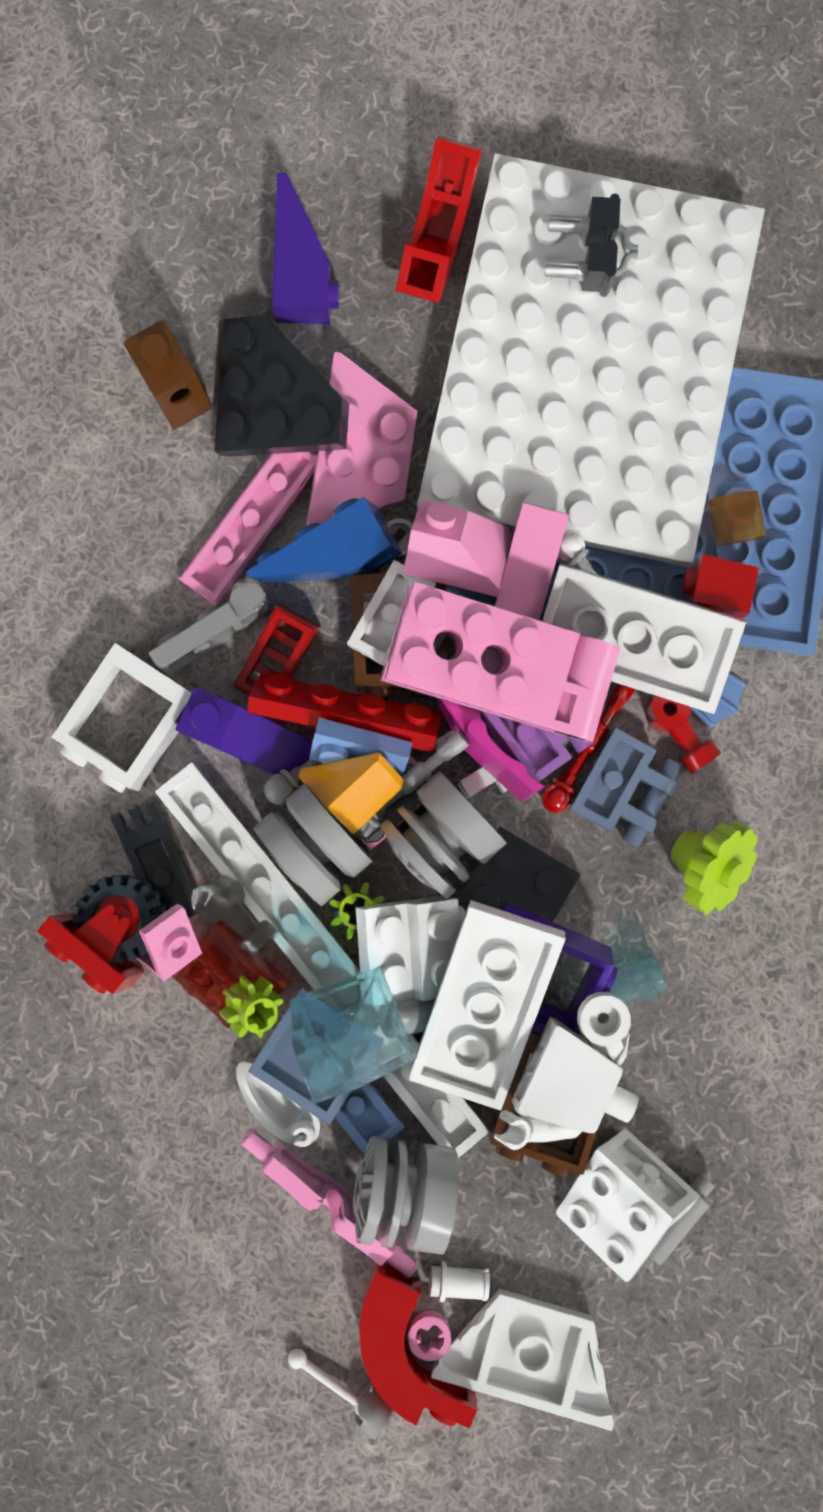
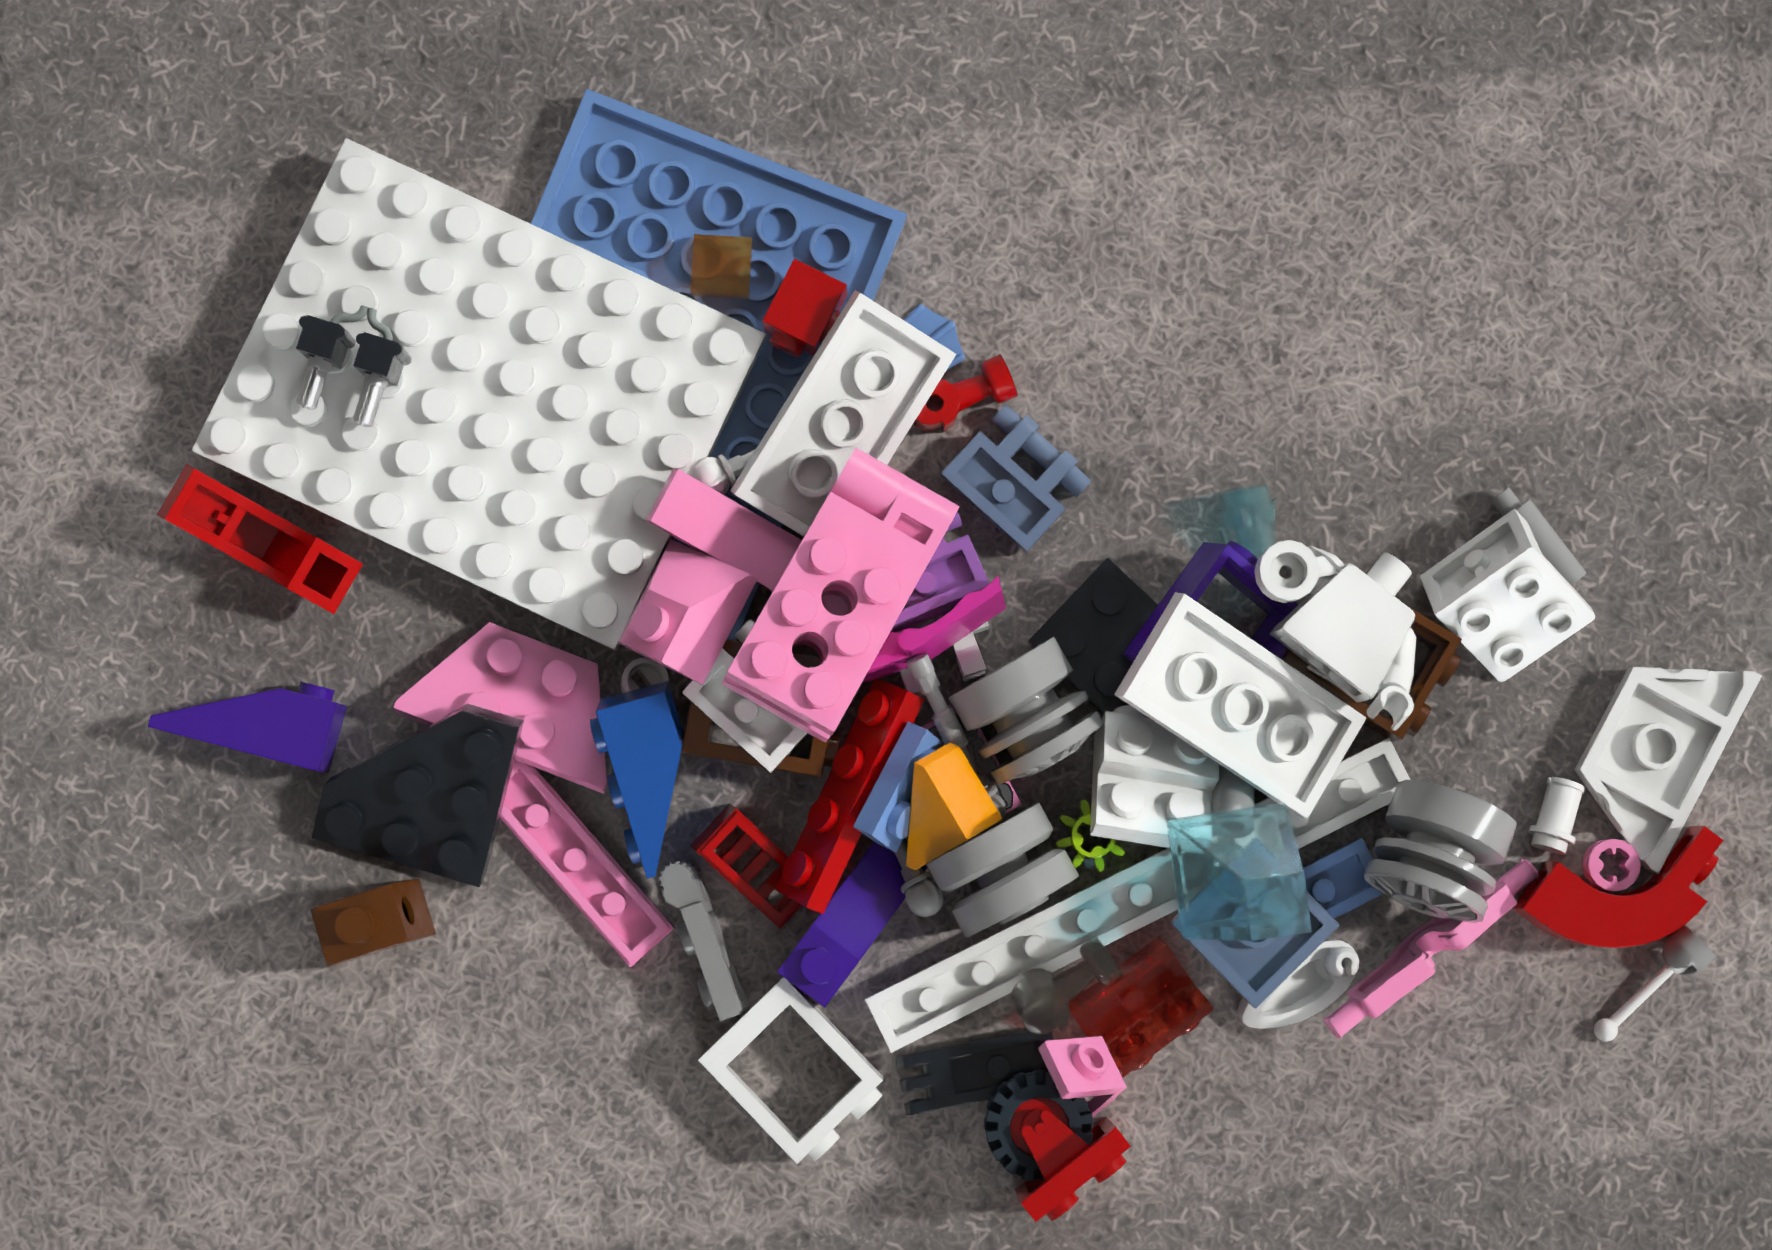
camera: 85 degrees left, 0 degrees up
(251, 1007) = (1180, 987): lime gear -> none
(557, 795) = (1004, 561): red piece -> none
(715, 864) = (1132, 395): lime plant -> none

